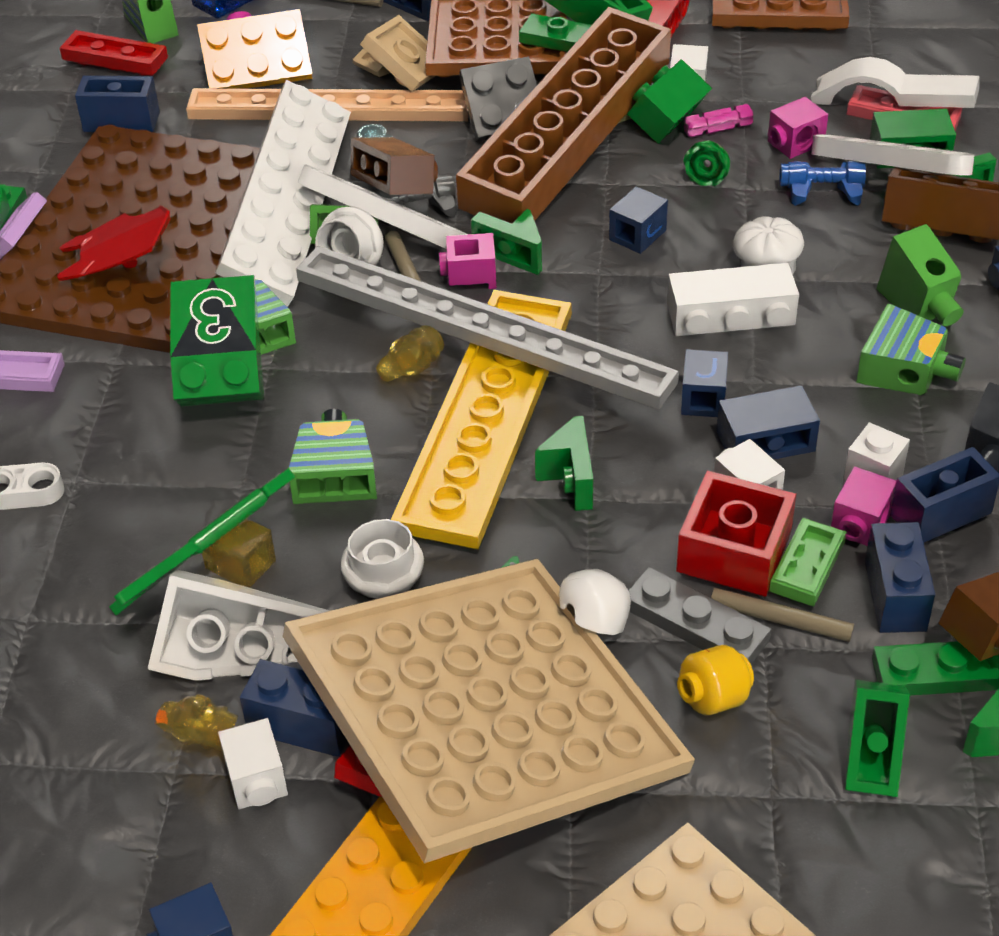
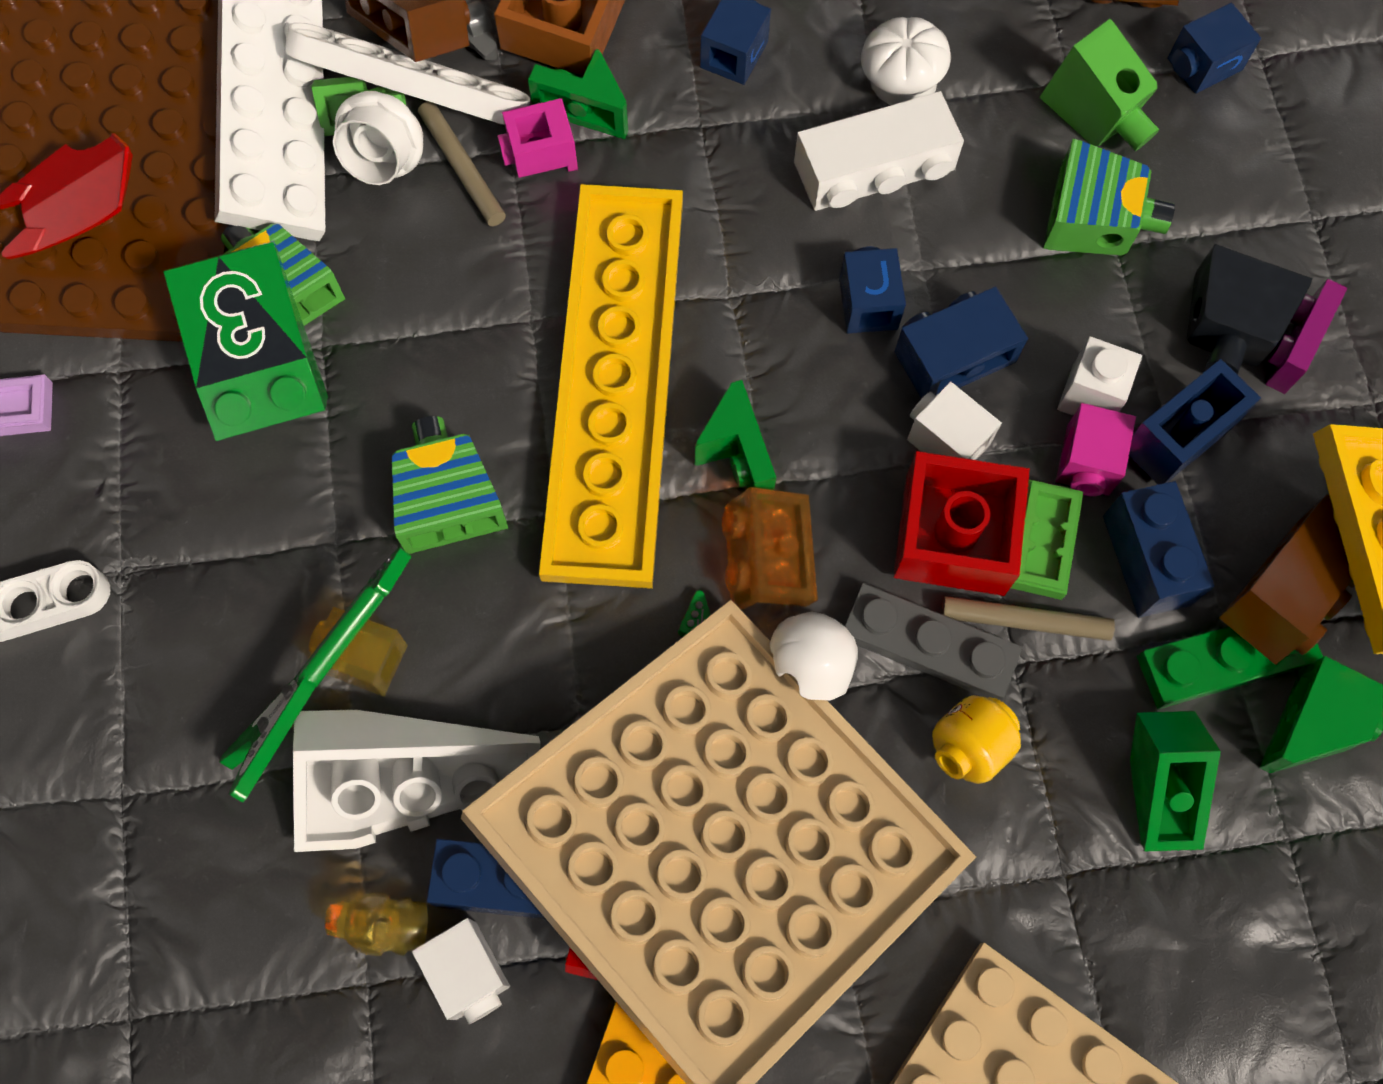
camera: 15 degrees left, 25 degrees up
(382, 559) = (543, 639): white piece -> none
(411, 354) = (501, 304): clear yellow animal -> none
(490, 327) = (585, 253): light grey plate -> none
(579, 530) = (769, 549): none -> clear orange bracket

